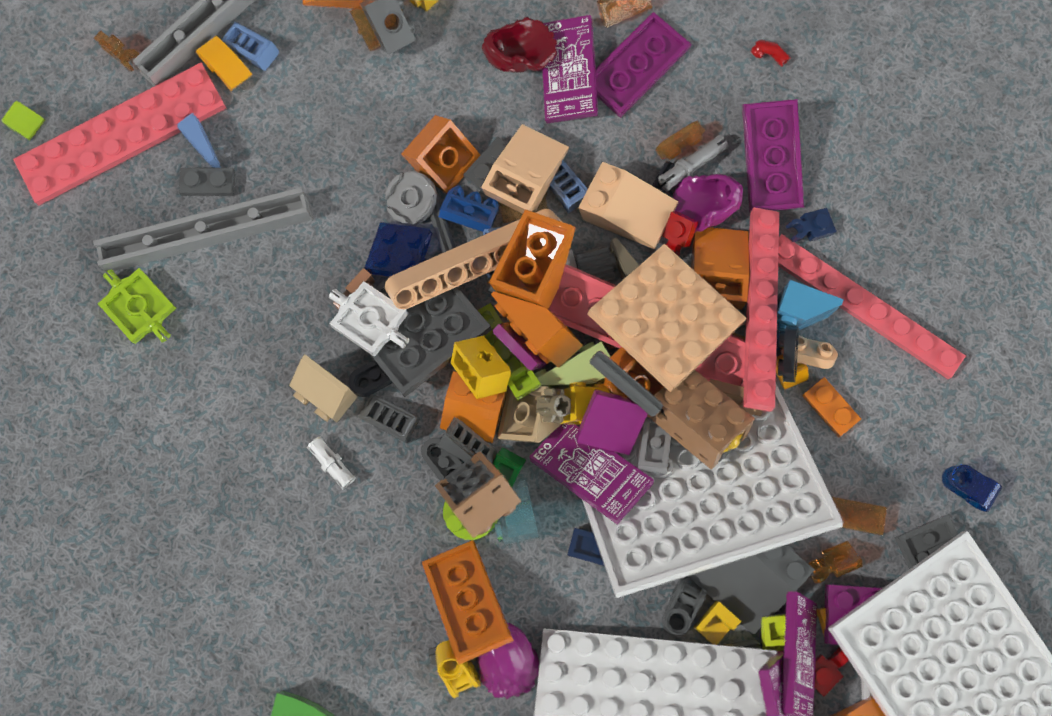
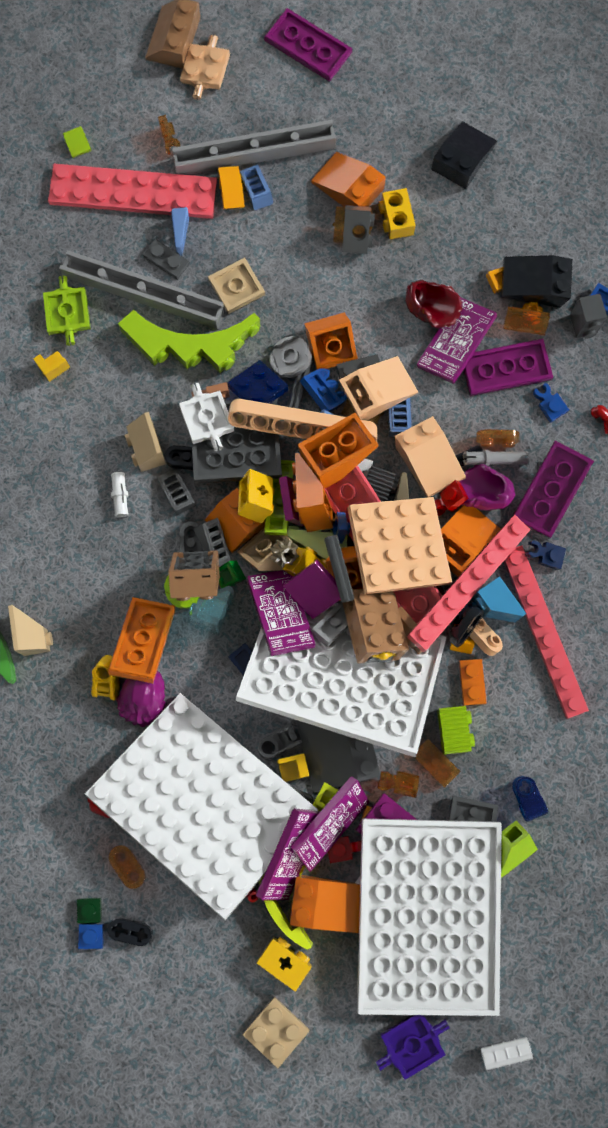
camera: 30 degrees right, 0 degrees up
(162, 374) = (52, 365): none -> yellow panel
(259, 275) = (188, 349): none -> lime arch
(301, 161) = (236, 285): none -> tan plate
(338, 679) = (27, 634): none -> tan slope
(591, 338) = (341, 526): none -> blue plate
(710, 73) = (551, 406): none -> blue plate
(851, 468) = (455, 730): none -> lime brick
(997, 544) = (515, 847): none -> lime slope

